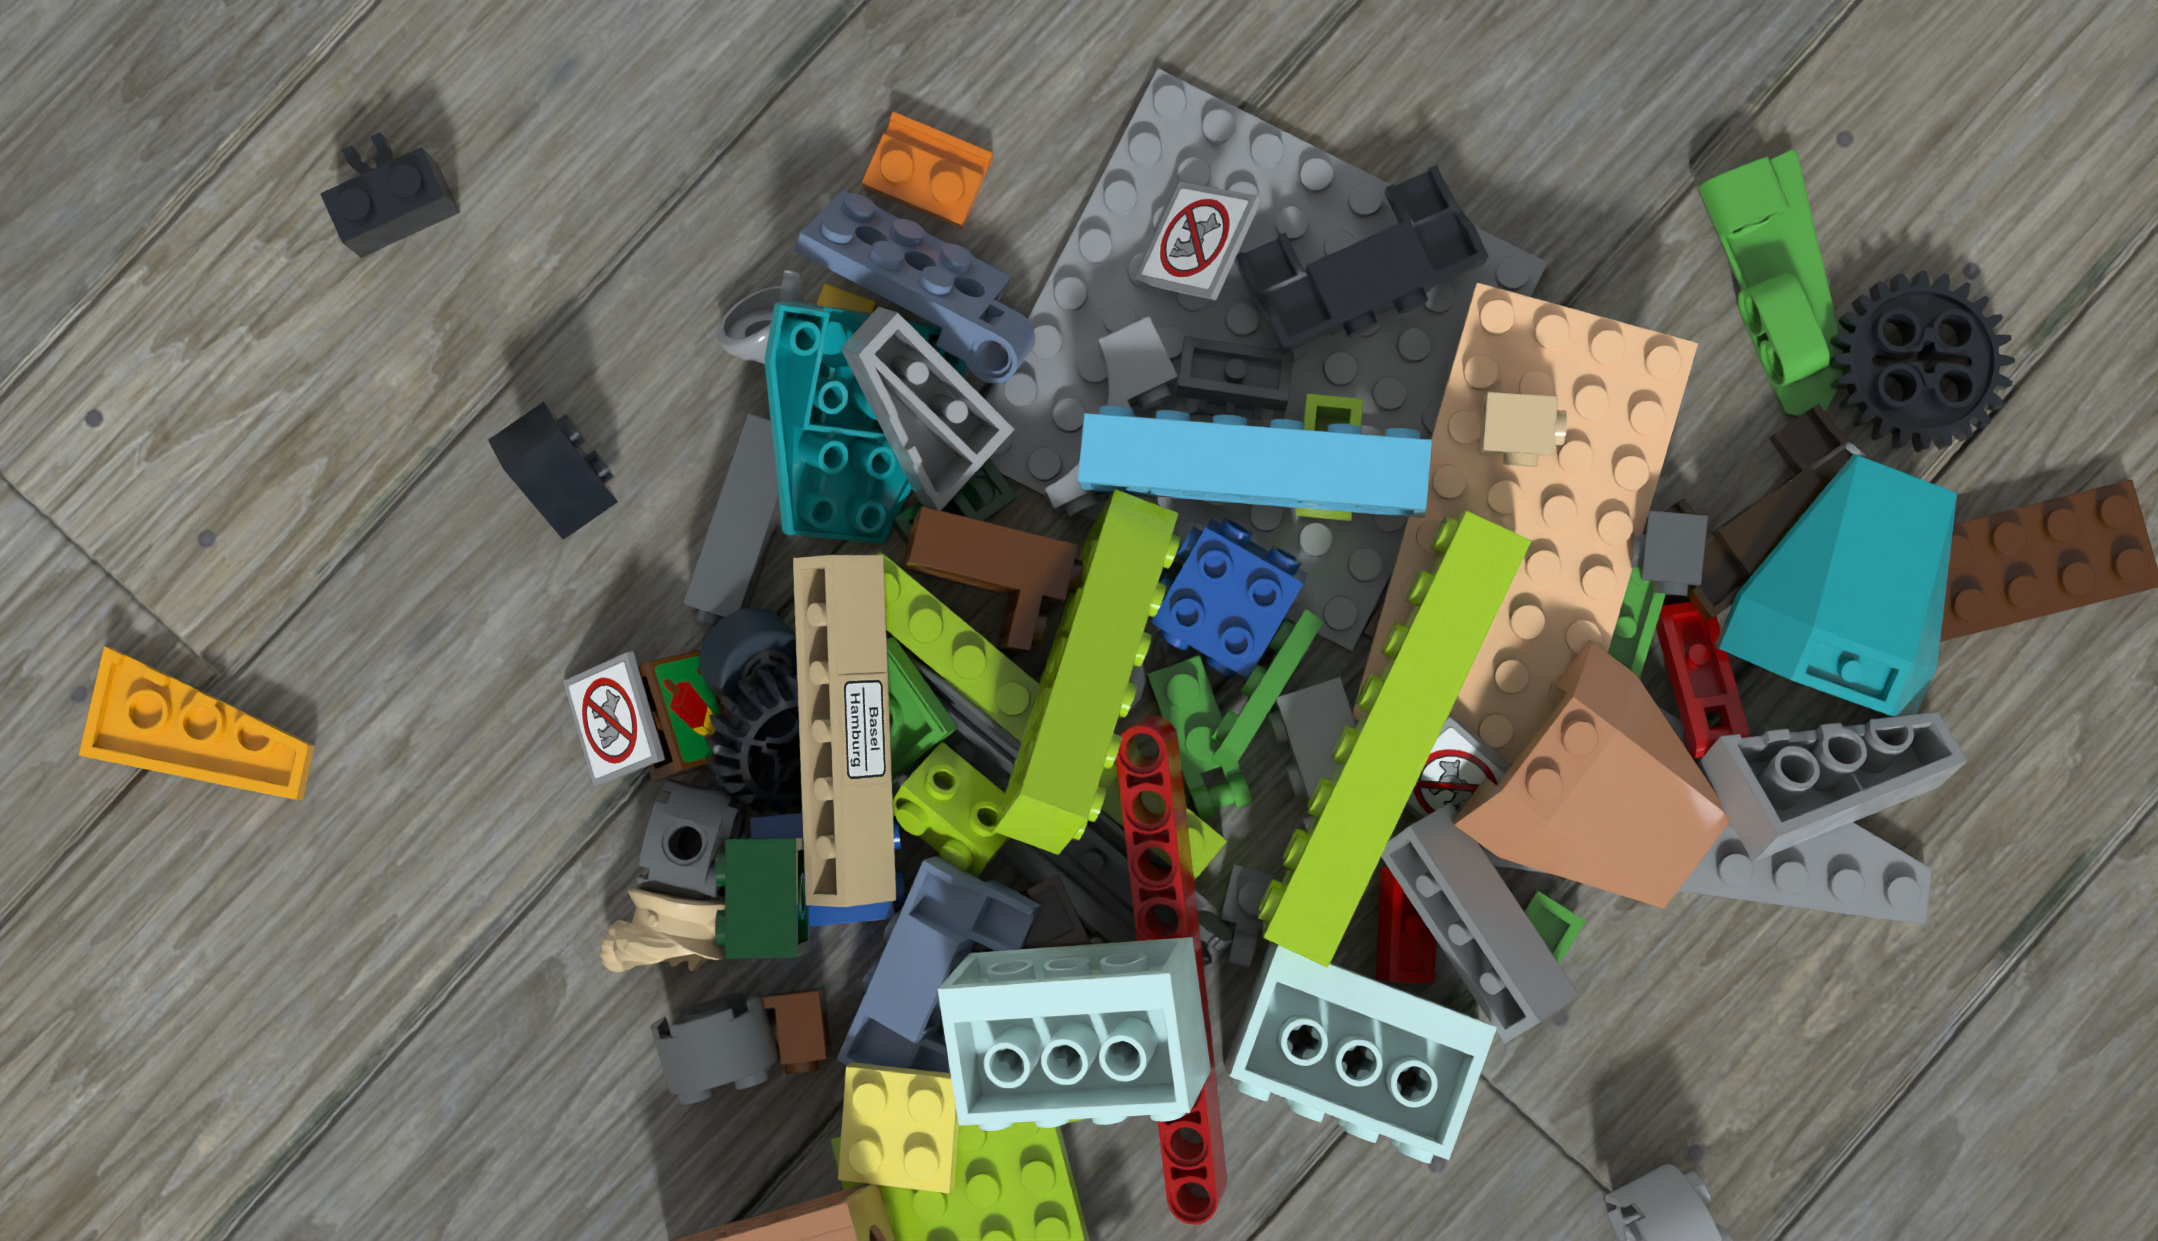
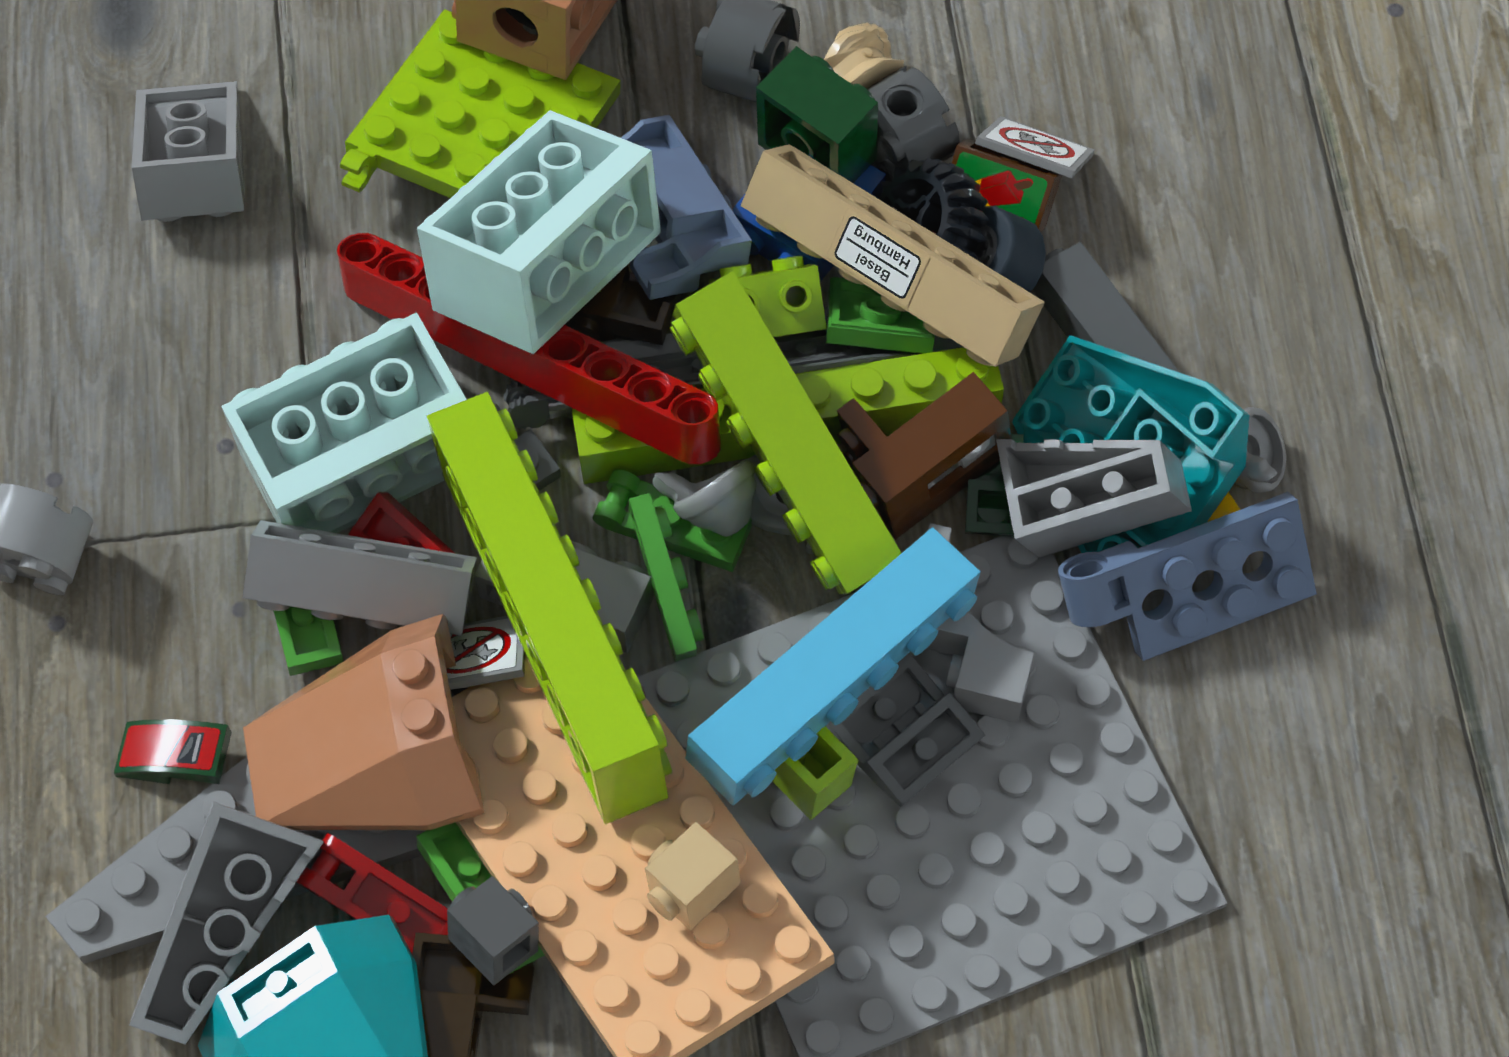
camera: 130 degrees right, 20 degrees down
(553, 469) = (1254, 227): black brick -> none
(800, 1028) = (713, 114): reddish brown brick -> none
(898, 1128) = (592, 96): light yellow plate -> none
(928, 170) = (1281, 667): orange plate -> none
(1179, 695) = (715, 504): none -> light grey hat
(1198, 240) = (1052, 794): piece -> none
(1228, 596) = (754, 604): blue brick -> none
(1369, 276) = (905, 918): black bracket -> none
(1722, 952) = (173, 750): none -> slope

